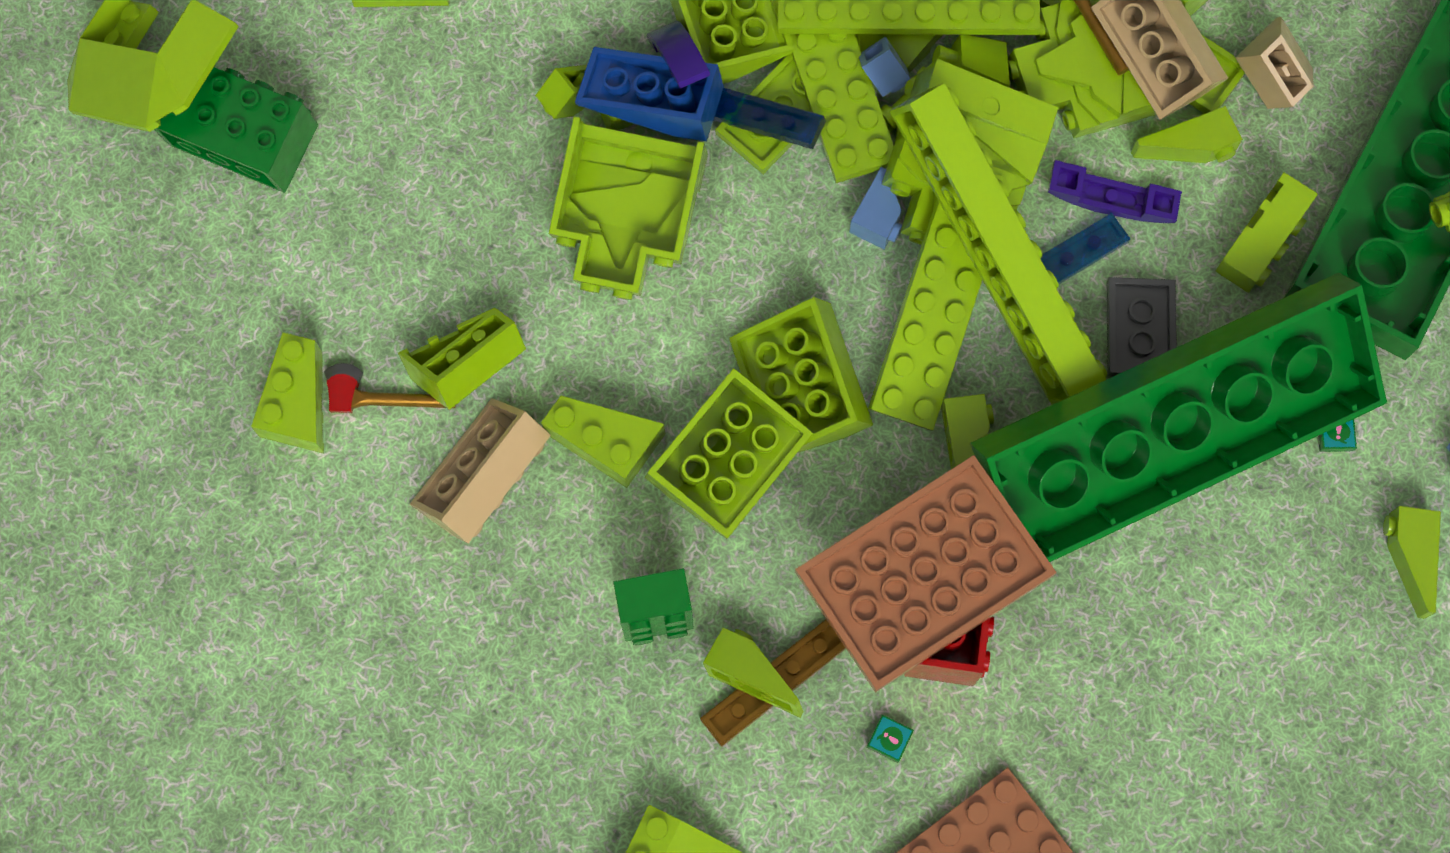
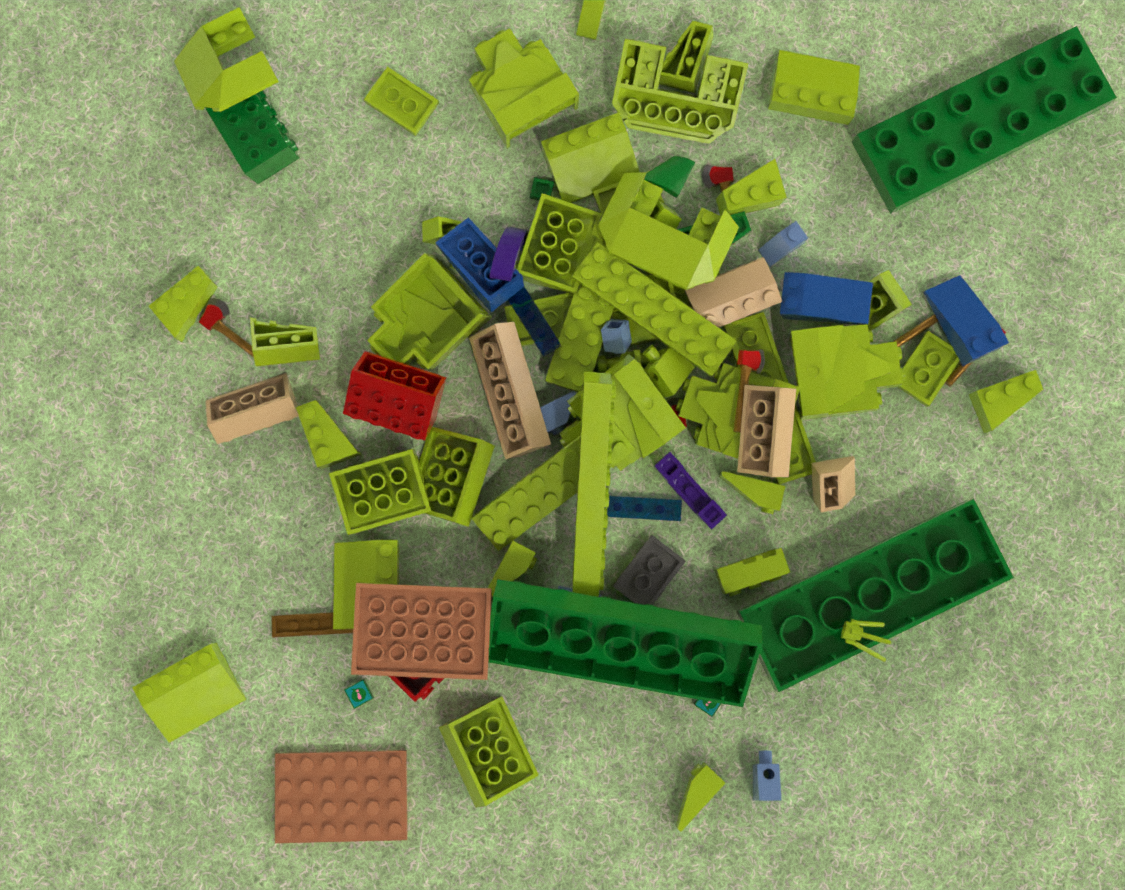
camera: 30 degrees right, 10 degrees up
(654, 606) = (281, 546): green brick -> none
(662, 319) = (394, 395): none -> red brick
(742, 665) = (311, 609): lime slope -> none
(766, 585) = (361, 563): none -> lime slope
(801, 219) = (509, 390): none -> tan brick
(1115, 692) = (488, 752): none -> lime slope

